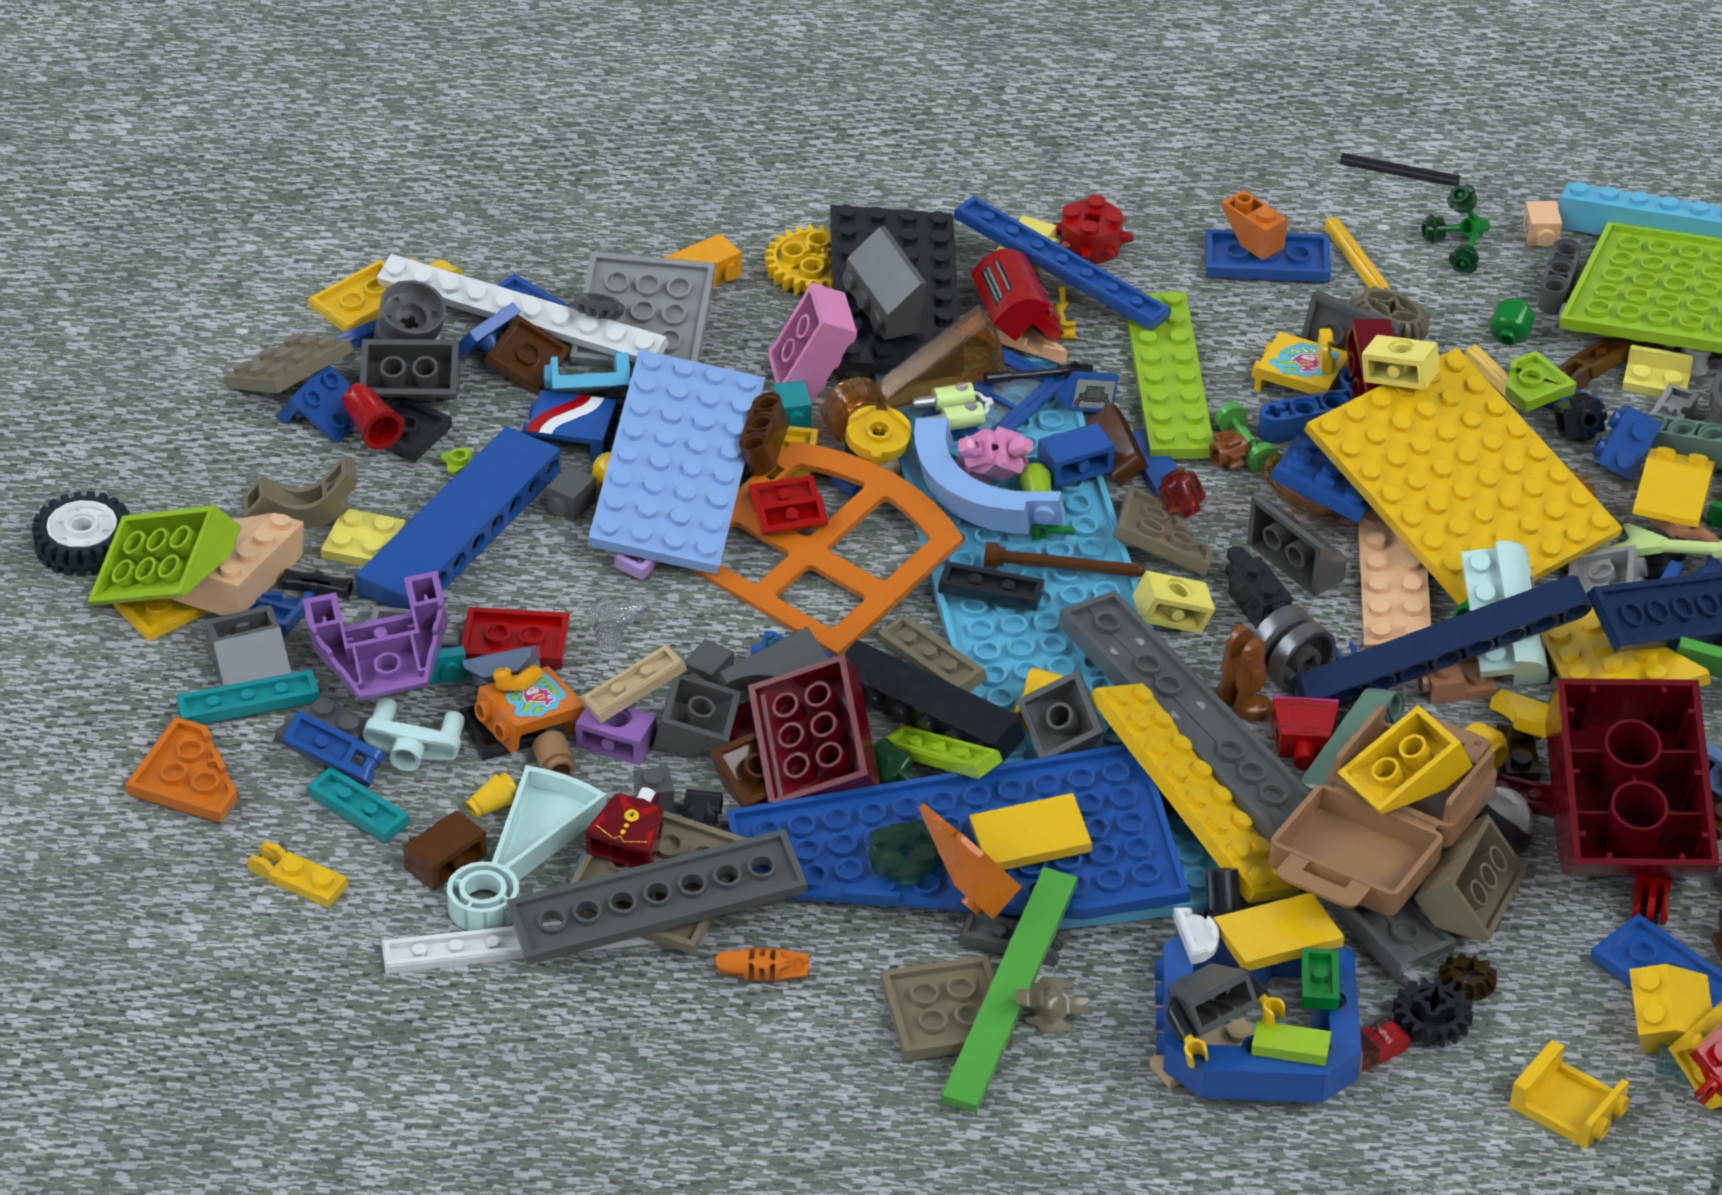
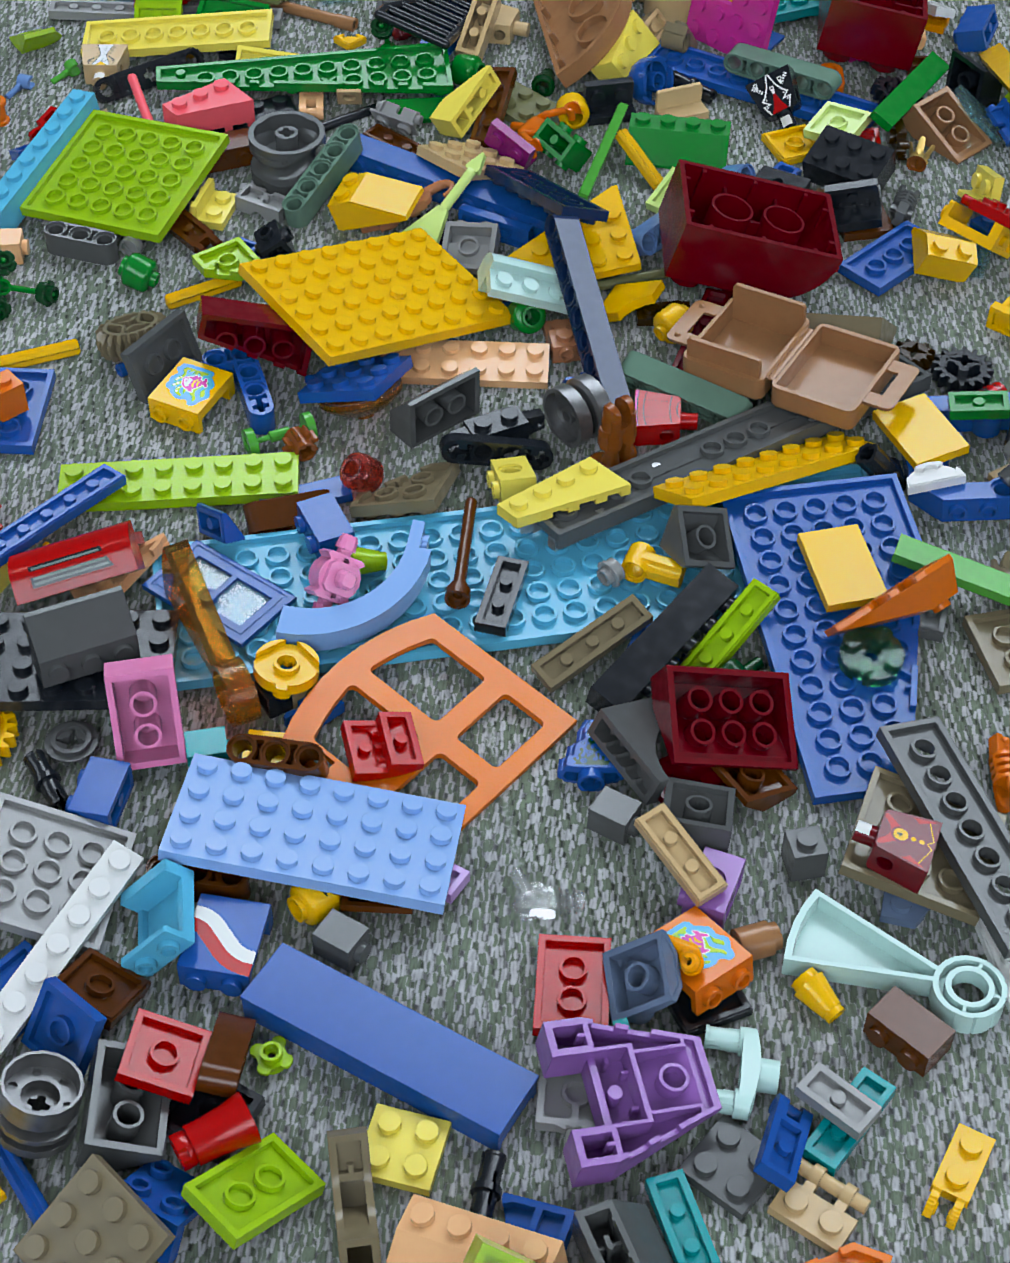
camera: 90 degrees left, 5 degrees up
(272, 776) = (812, 1215): none -> tan plate
(321, 437) = (253, 1190): none -> lime plate
(365, 781) = (838, 1101): none -> light grey plate
(441, 377) = (163, 1056): none -> plate
(449, 421) = (226, 1055): none -> reddish brown beam
(599, 306) = (55, 900): dark grey gear -> none
(703, 806) = (832, 820): black piece -> none
(735, 342) = (102, 790): none -> brick
(761, 316) = (46, 779): none -> black pin
(957, 404) = (259, 608): yellowish green piece -> none
(1007, 376) = (189, 531): black piece -> none
(1026, 662) = (610, 572): none -> light grey plate
(1135, 622) = (563, 492): none -> light yellow wing
(1222, 585) = (497, 447): none -> black beam
(1323, 353) = (194, 364): yellow tile -> none
(1400, 362) = (274, 285): light yellow brick -> none
(1407, 763) = (759, 325): yellow slope -> none
(1626, 441) = (311, 220): blue bracket -> none

